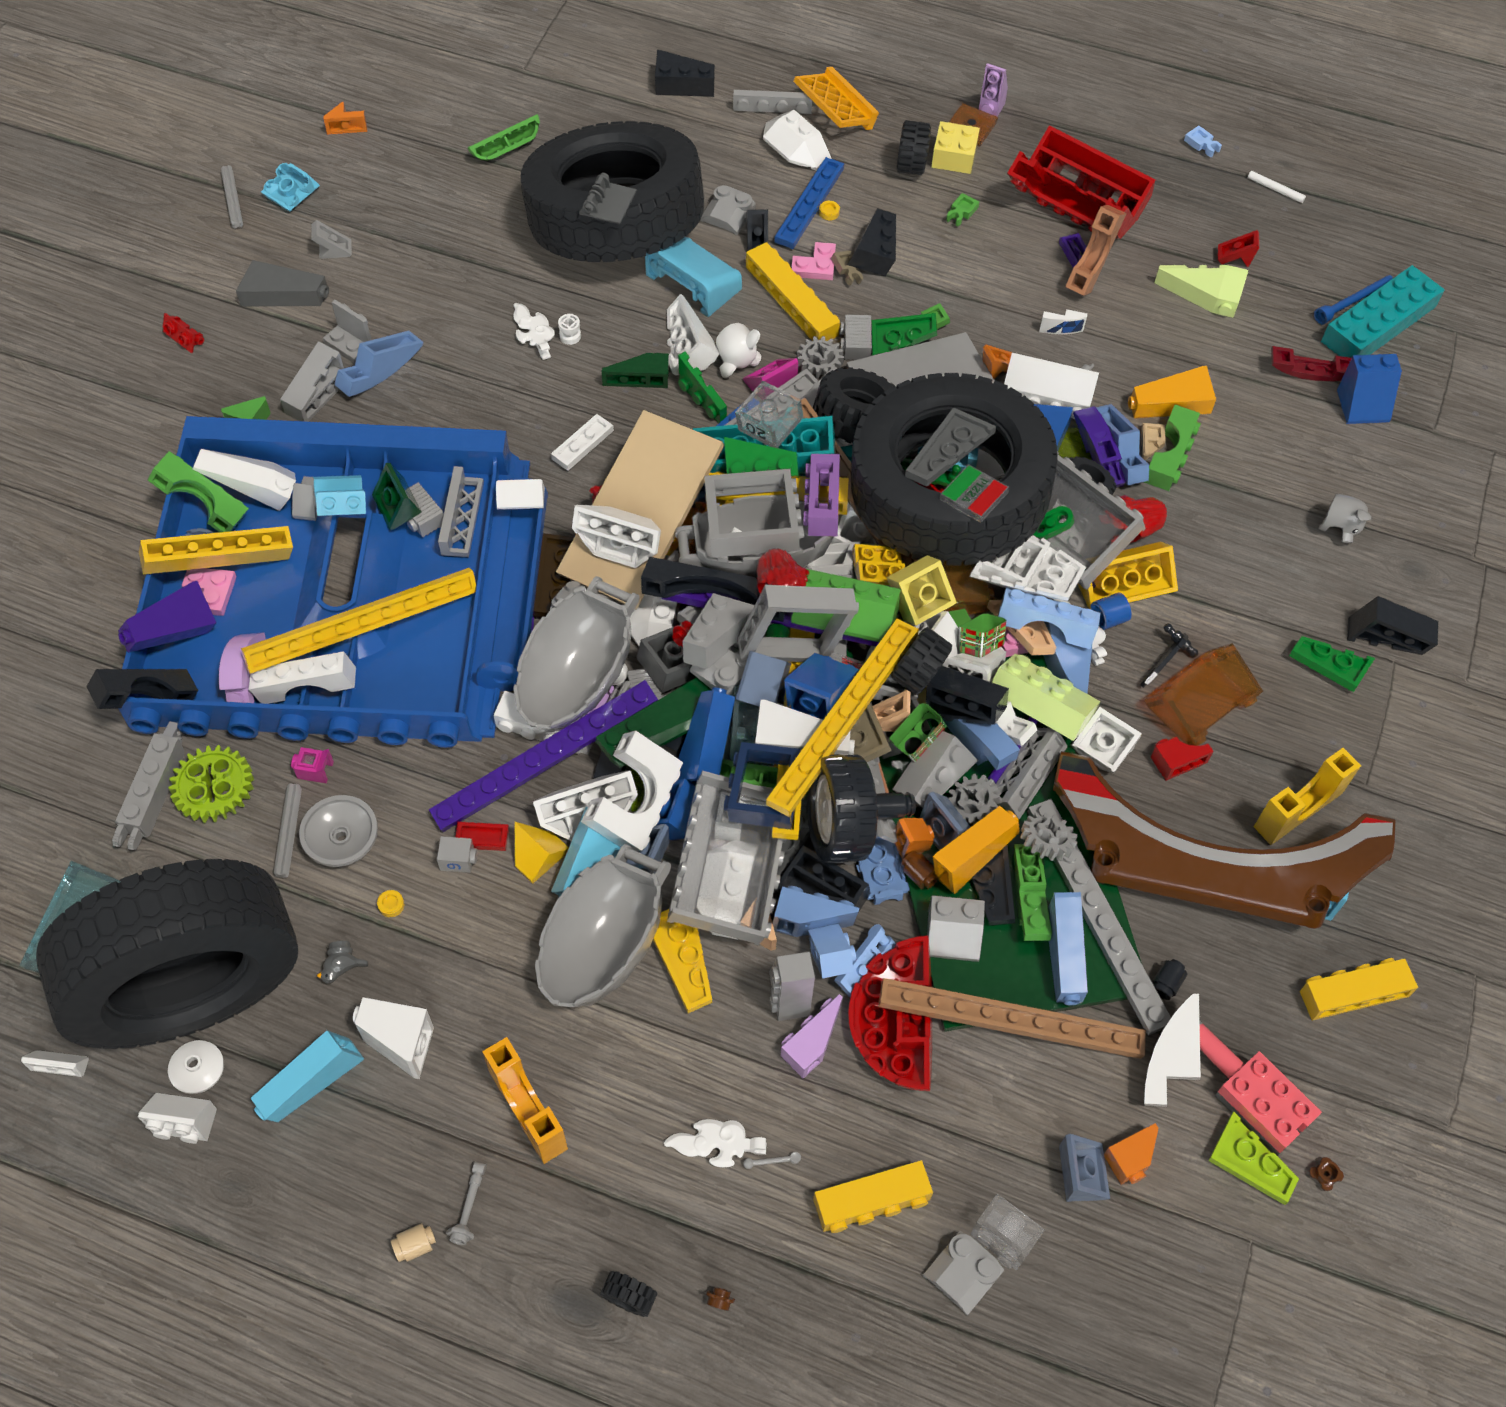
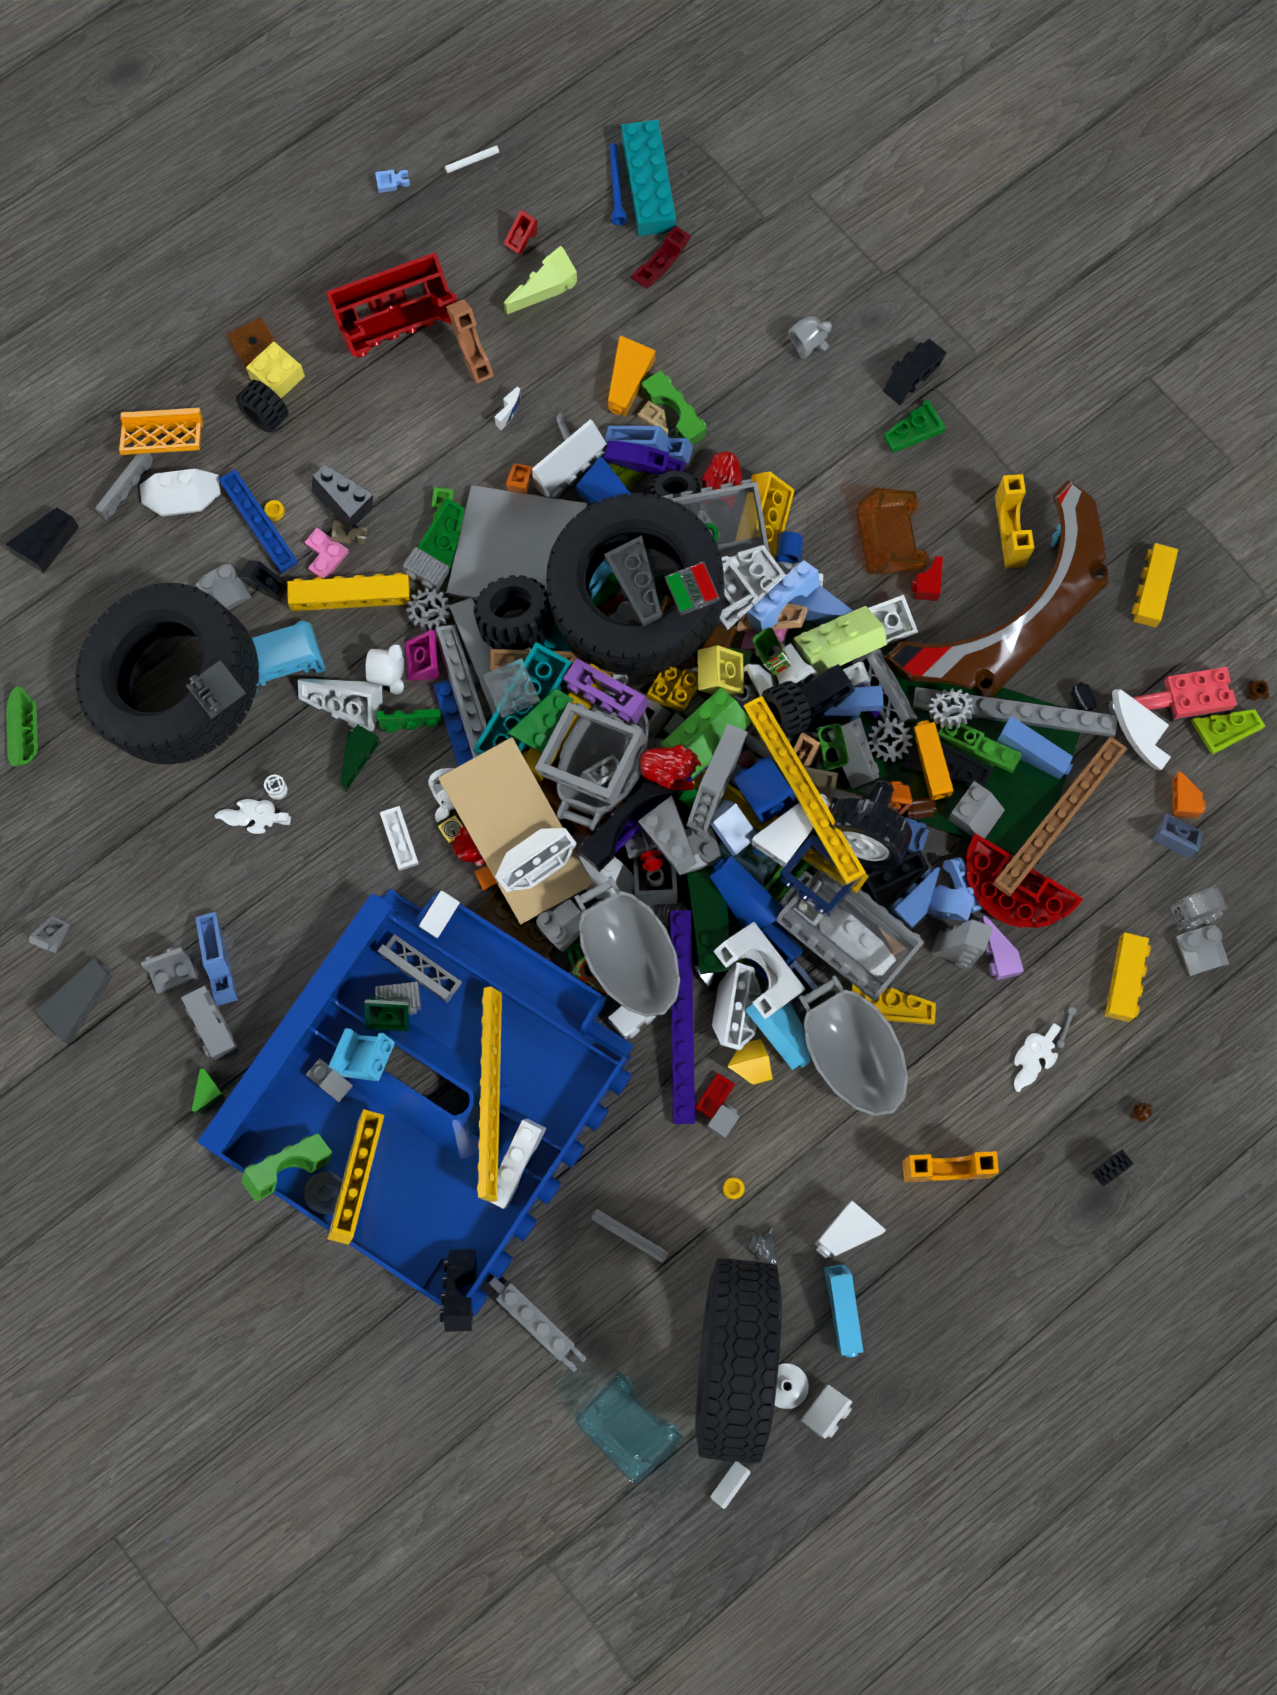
camera: 60 degrees left, 15 degrees up
(169, 620) = (401, 1242): dark purple slope -> none
(181, 332) = (65, 1111): red hinge -> none
(187, 787) = (565, 1255): lime gear -> none
(215, 586) = (379, 1195): bright pink plate -> none
(233, 671) = (466, 1201): lavender arch -> none
(250, 476) = (290, 1114): white wedge -> none
(311, 764) = (584, 1191): dark pink window -> none
(336, 818) = (664, 1182): light grey dish -> none
(413, 1243) = (1001, 1291): tan brick -> none
(460, 1233) = (1009, 1257): light grey piece -> none
(943, 819) = (901, 769): sand blue slope -> none
(962, 207) = (343, 407): bright green plate -> none
(993, 90) = (241, 307): lavender slope -> none
(1070, 250) = (441, 354): dark purple tile -> none
(1180, 641) = (846, 533): black piece -> none
(1370, 388) = (713, 238): blue slope -> none

